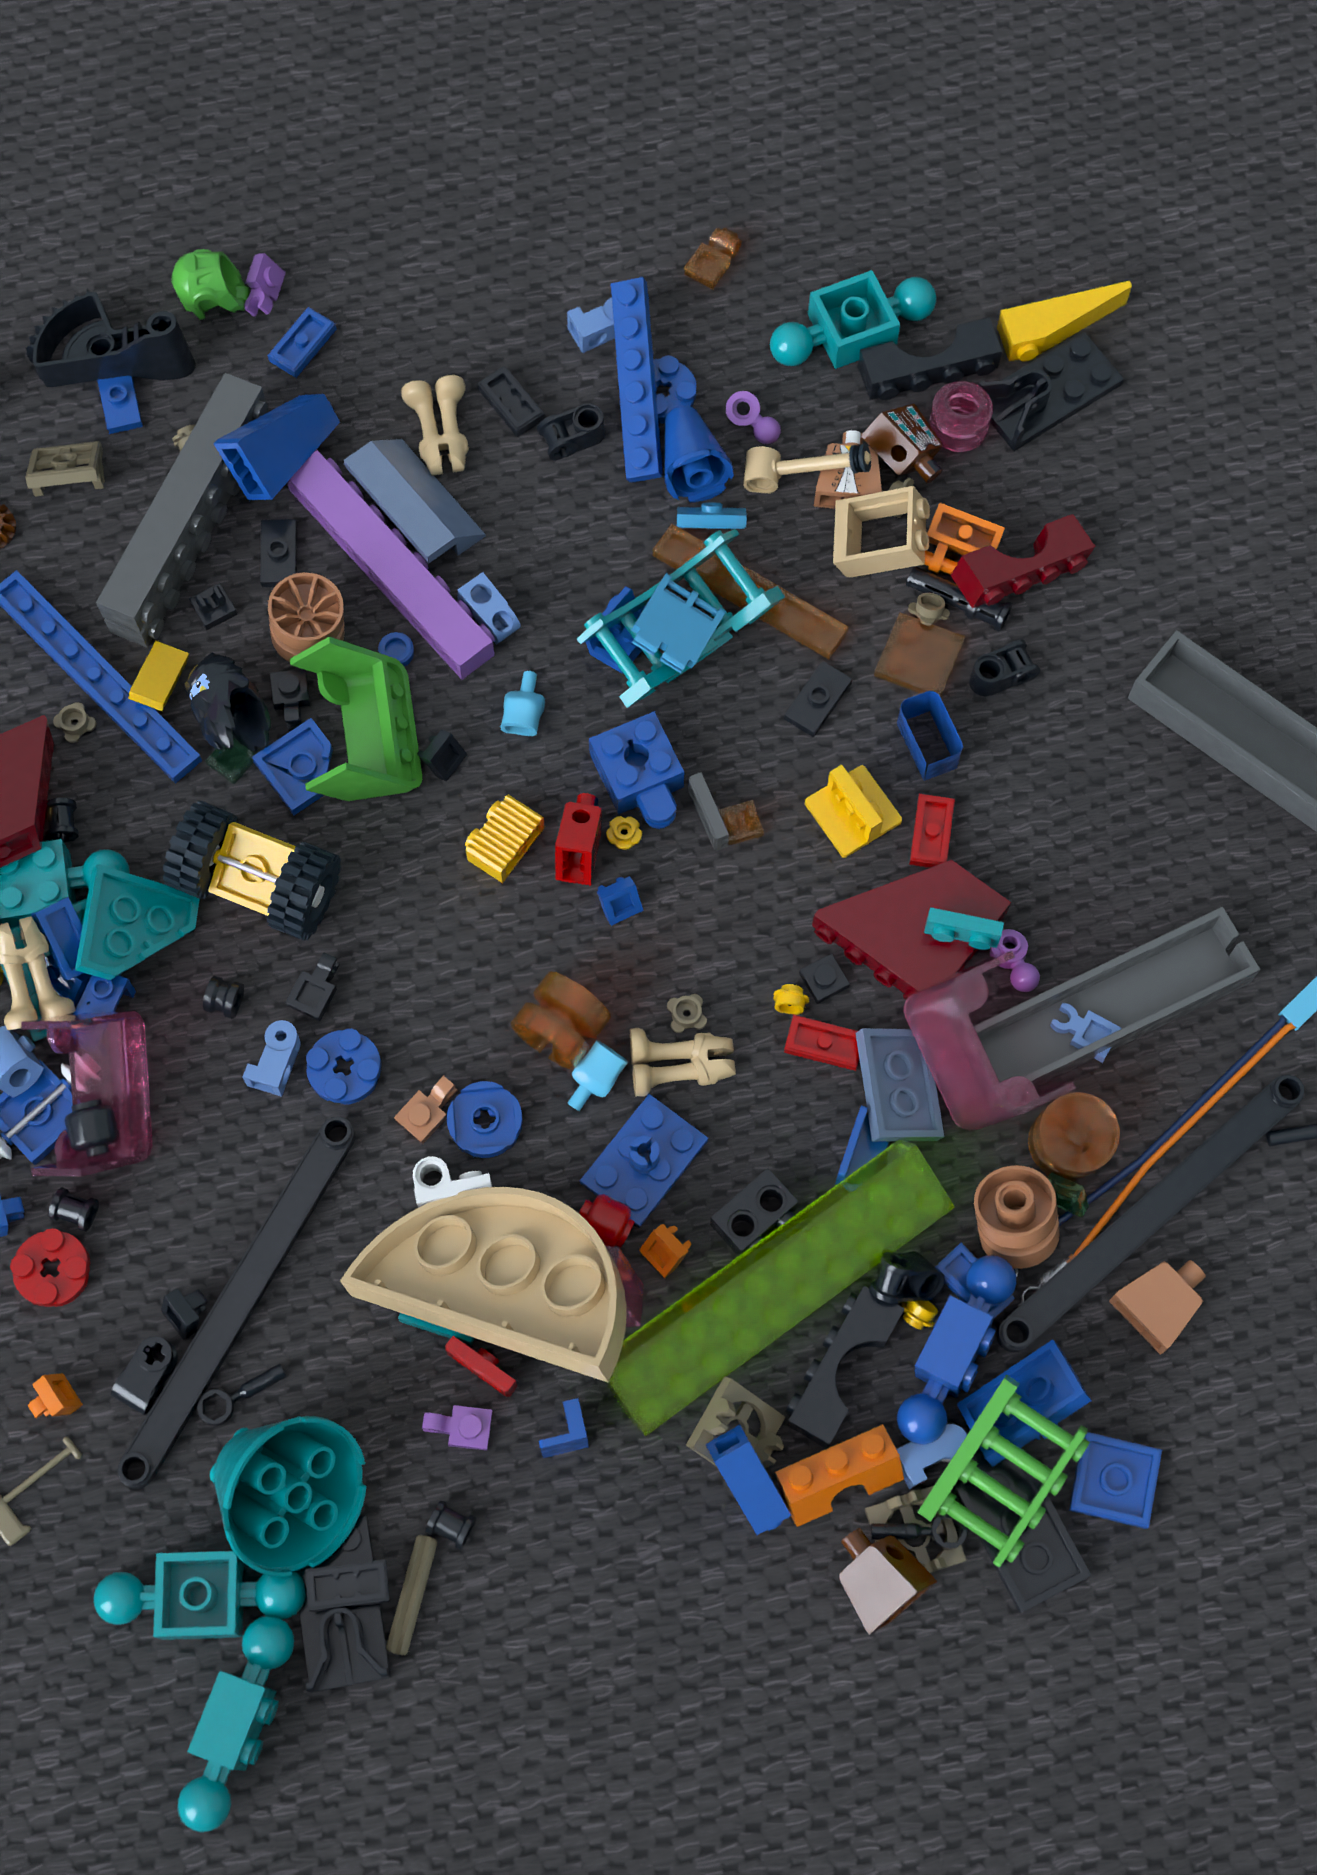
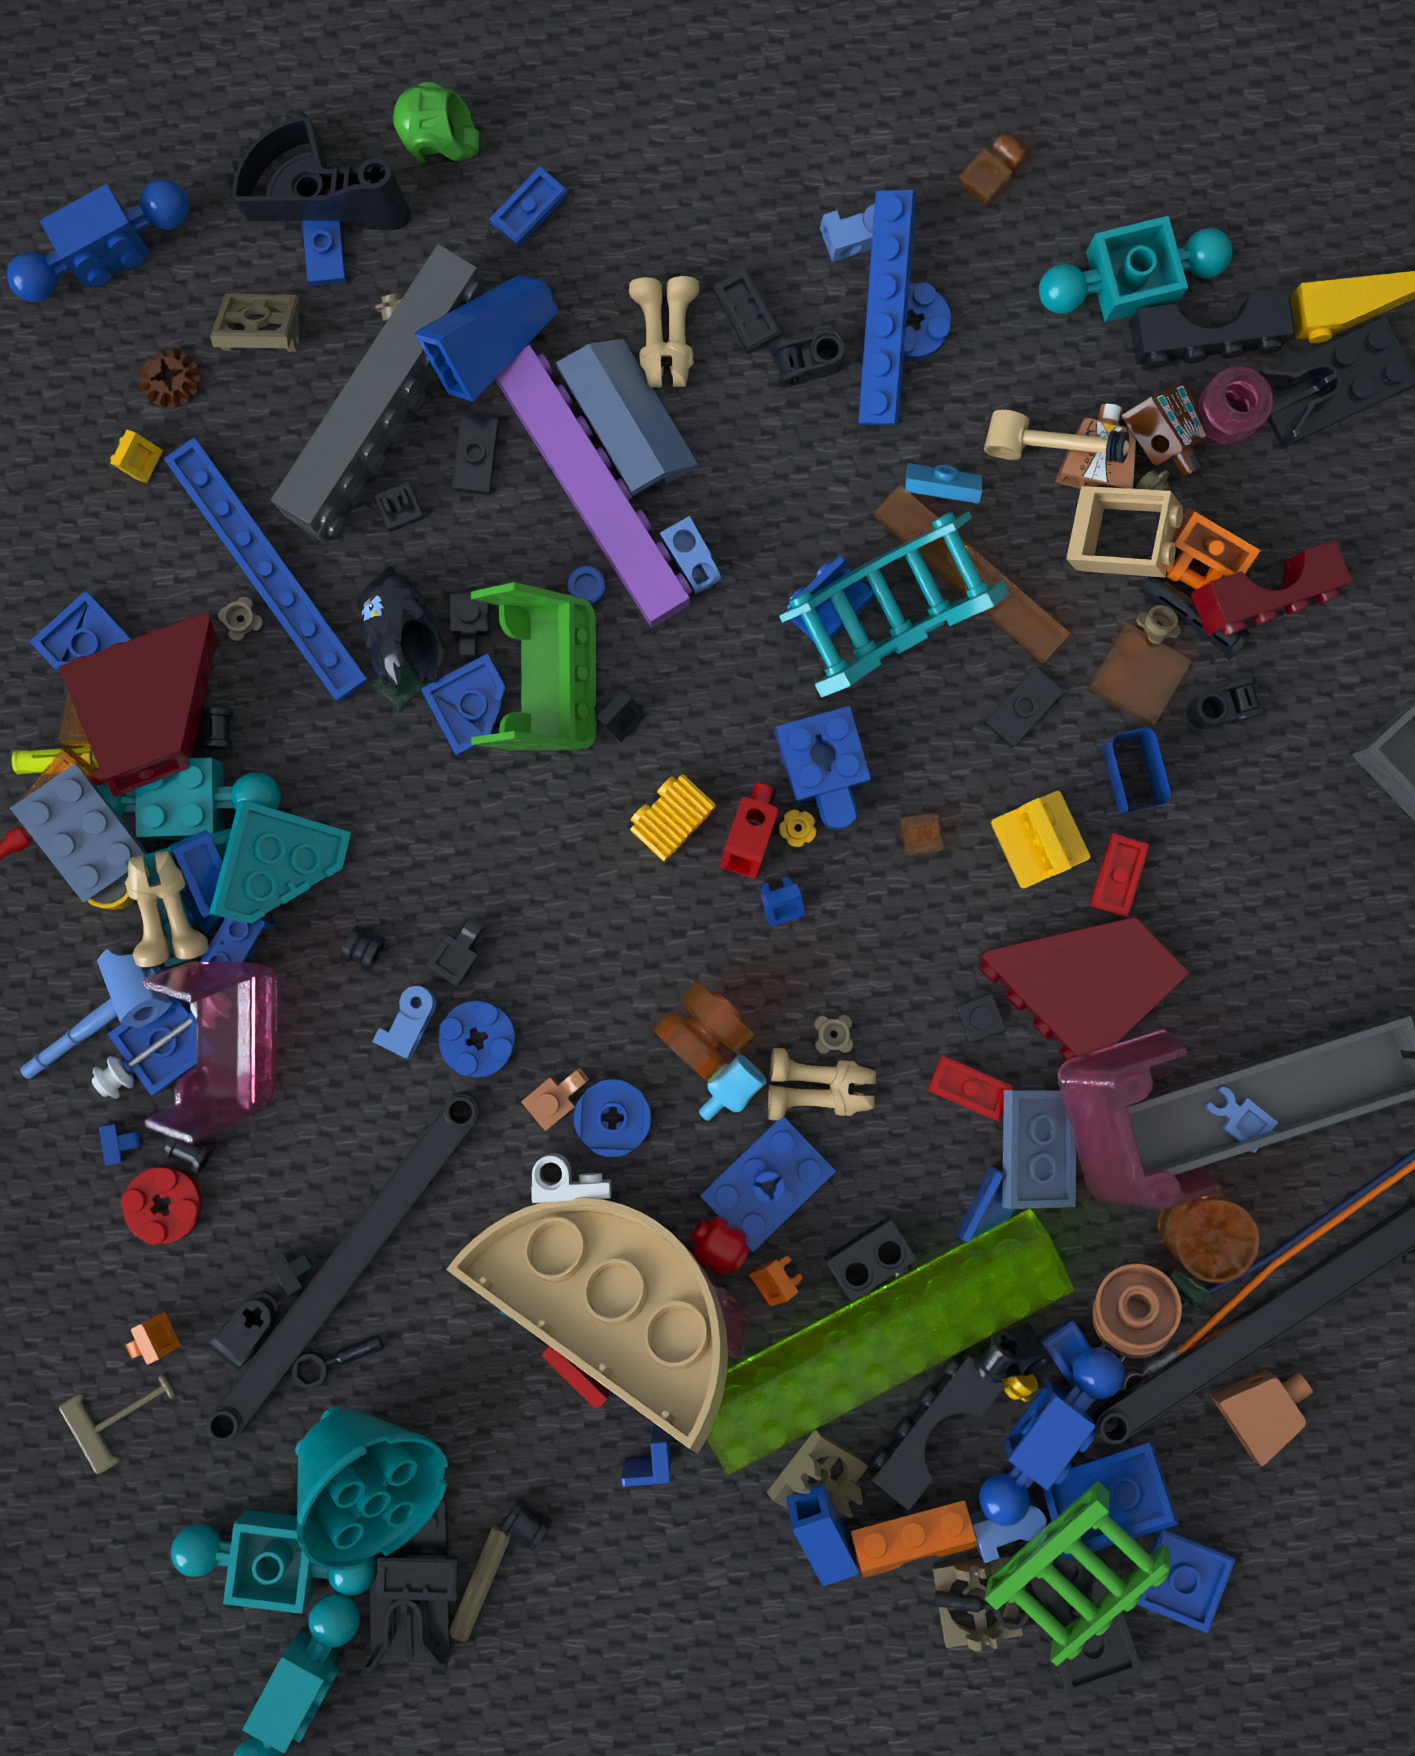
camera: 10 degrees right, 15 degrees up
(92, 1128) = (212, 1078): black head -> none
(158, 676) = (332, 581): yellow tile -> none
(251, 869) = (405, 820): black plate -> none
(265, 283) = (497, 126): medium lavender plate -> none
(304, 612) = (494, 541): nougat wheel -> none
(467, 1426) = (554, 1427): medium lavender plate -> none
(523, 708) = (712, 671): medium azure piece -> none
(675, 625) = (887, 614): dark azure plate -> none
(693, 457) = (934, 408): blue cone -> none
(708, 812) = (888, 820): dark grey tile -> none
(765, 428) = (1017, 384): medium lavender plate -> none
(791, 995) = (942, 1036): yellow plate -> none
(882, 1579) = (939, 1650): torso -> none
(951, 926) = (1151, 1008): teal plate -> none
(1023, 975) = (1180, 1028): medium lavender plate -> none

